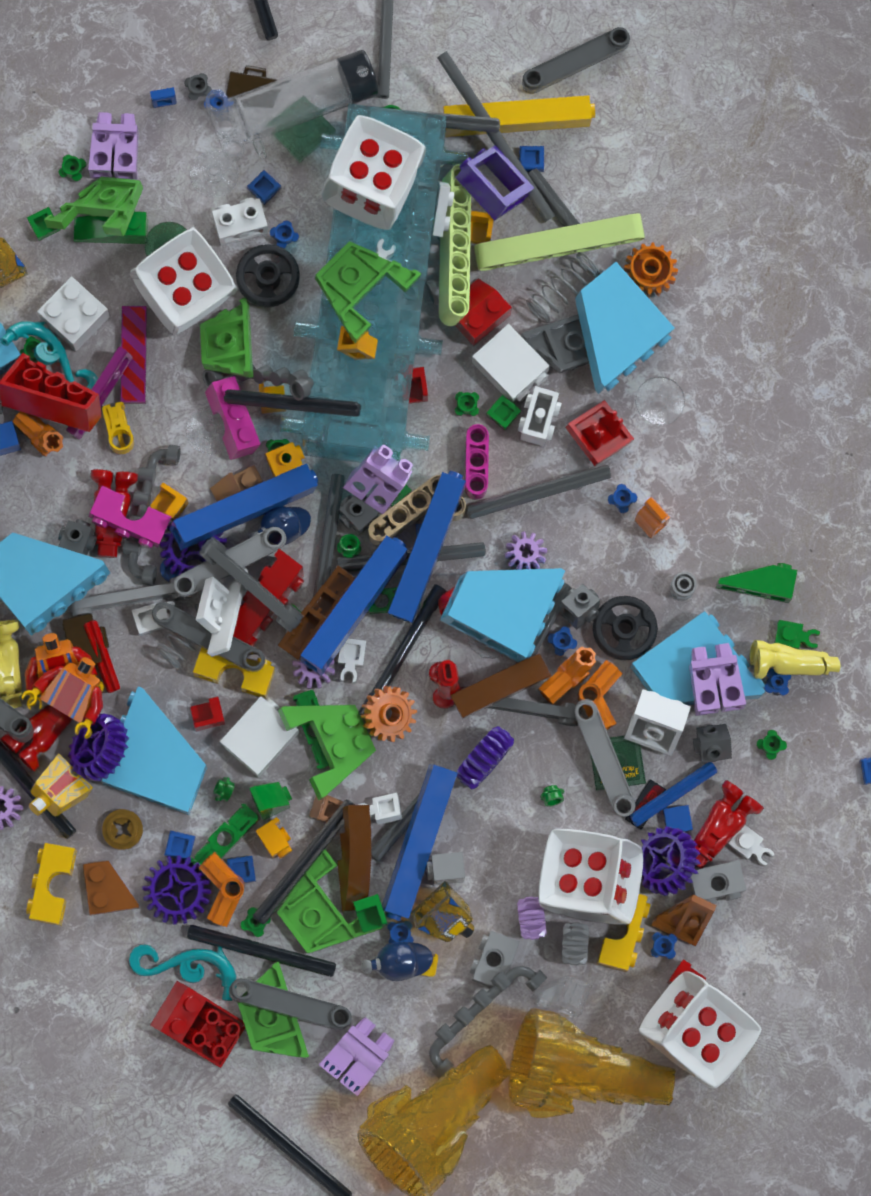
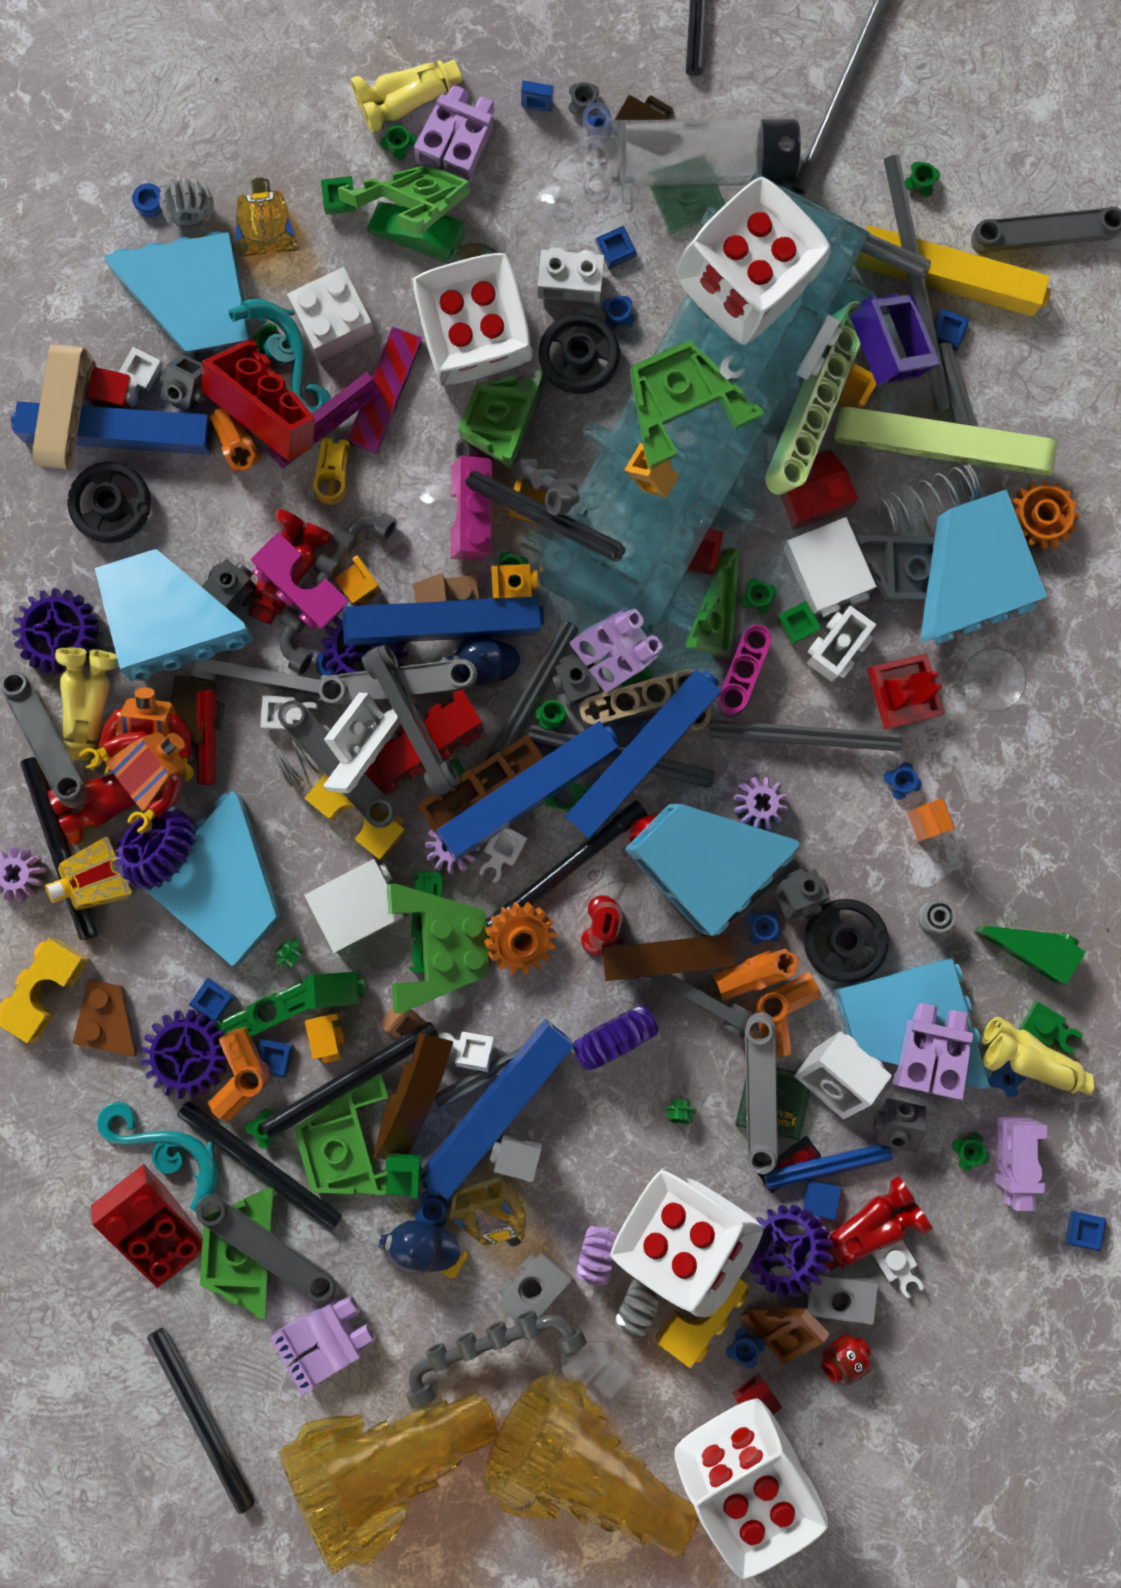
camera: 25 degrees right, 5 degrees up
(62, 129) = (403, 91): none -> light yellow piece
(122, 817) = (137, 950): pearl gold gear -> none
(207, 714) = (305, 855): red panel -> none
(442, 432) = (715, 621): none -> bright green wing
(465, 50) = (924, 170): none -> green plate
(738, 924) = (846, 1360): none -> red head
(805, 736) = (1019, 1161): none -> lavender hips

